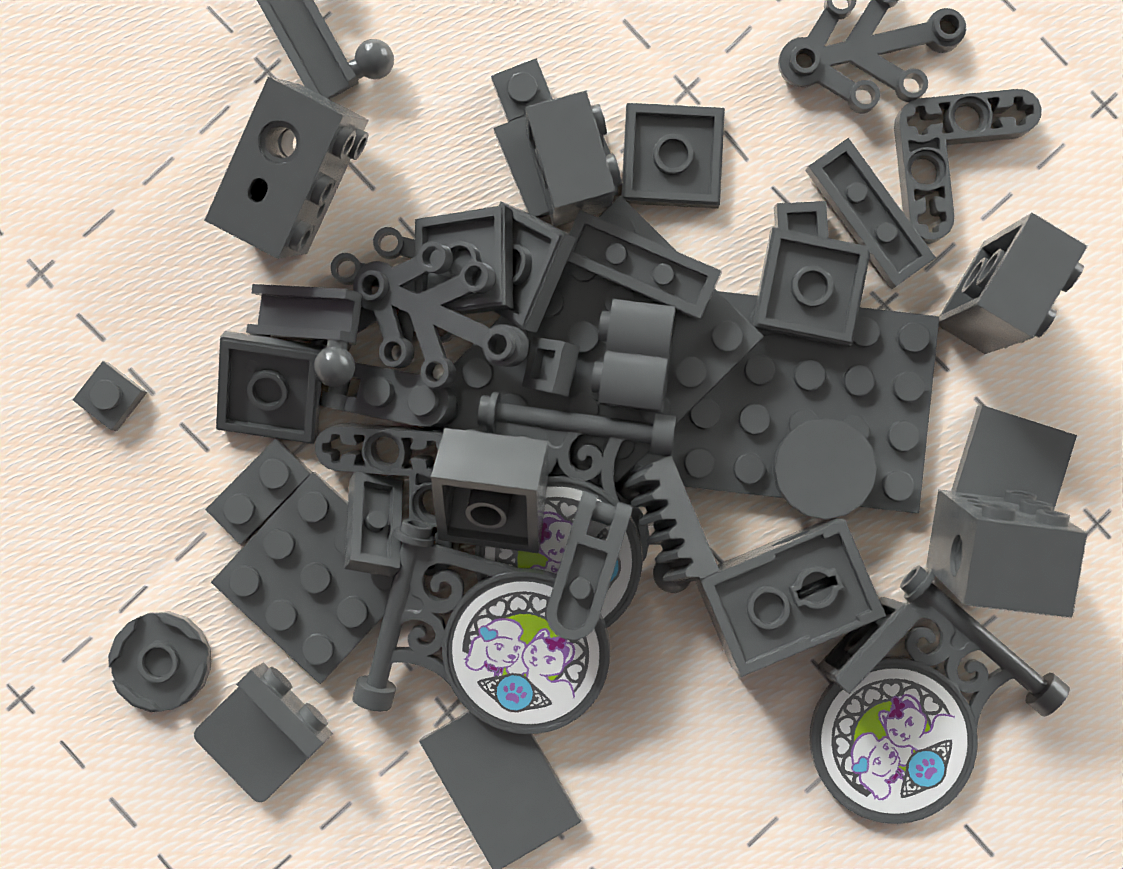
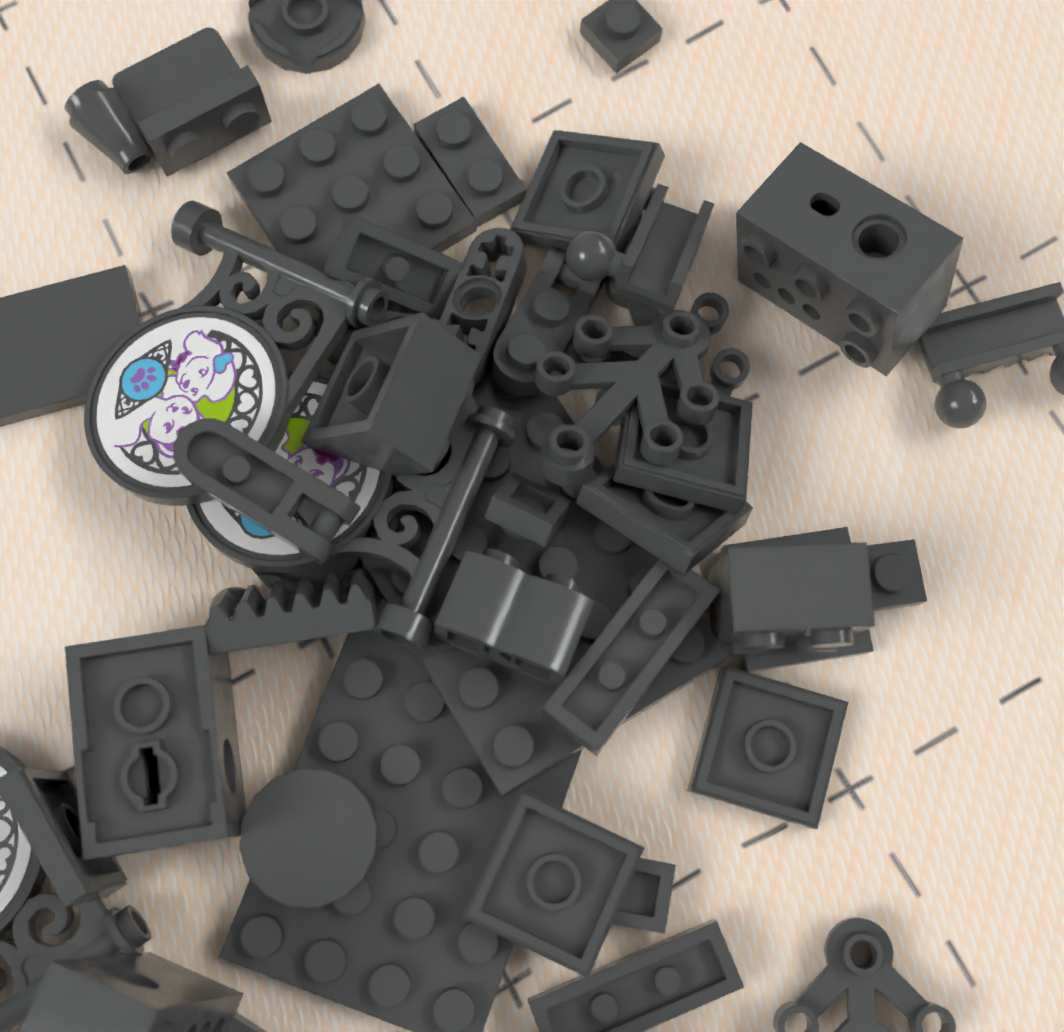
camera: 100 degrees right, 10 degrees down
(302, 793) = (107, 124): none -> dark grey cone

